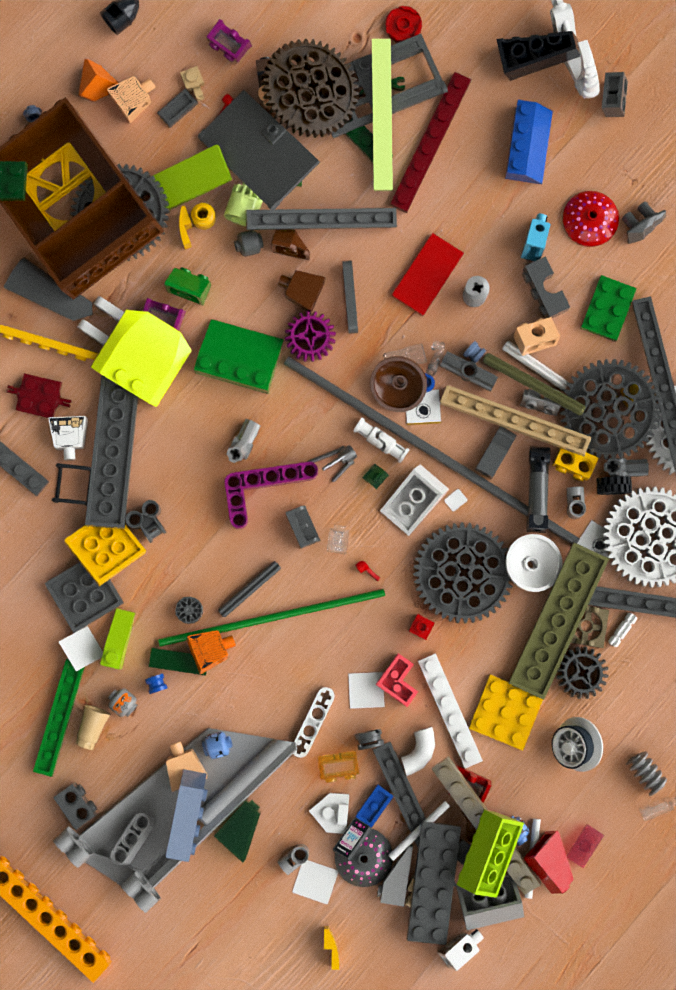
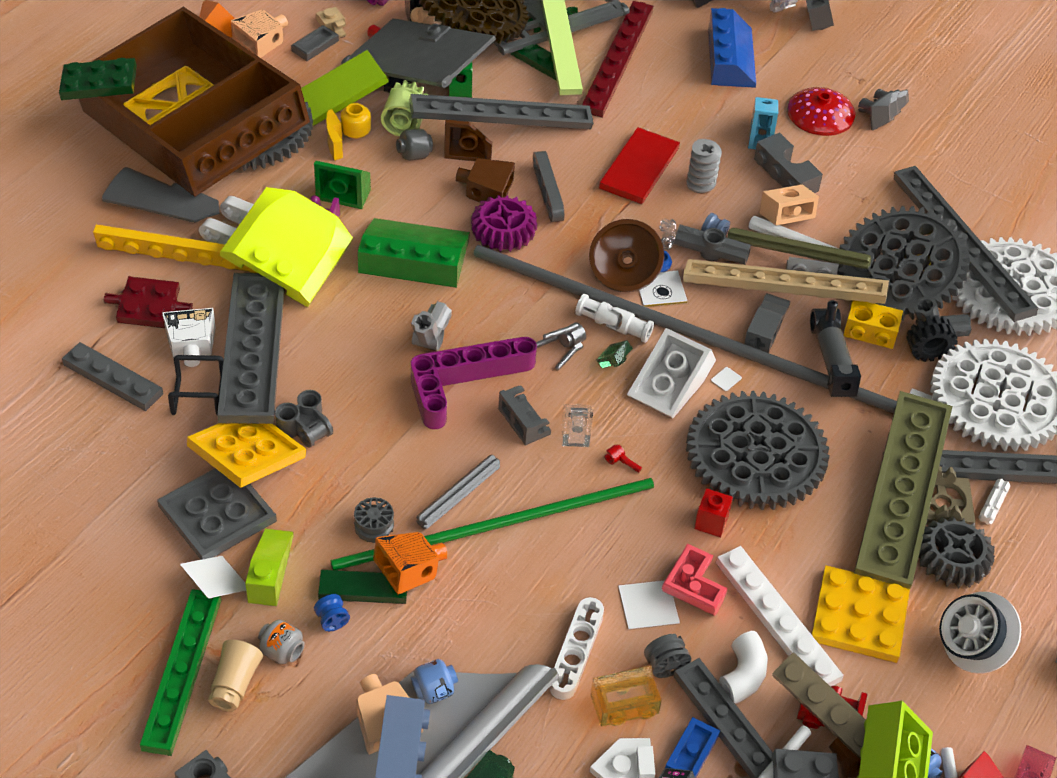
camera: 10 degrees left, 35 degrees down
(545, 559) = (851, 425): white dish -> none
(573, 492) = (887, 364): light grey piece -> none
(608, 308) = (867, 184): green plate -> none

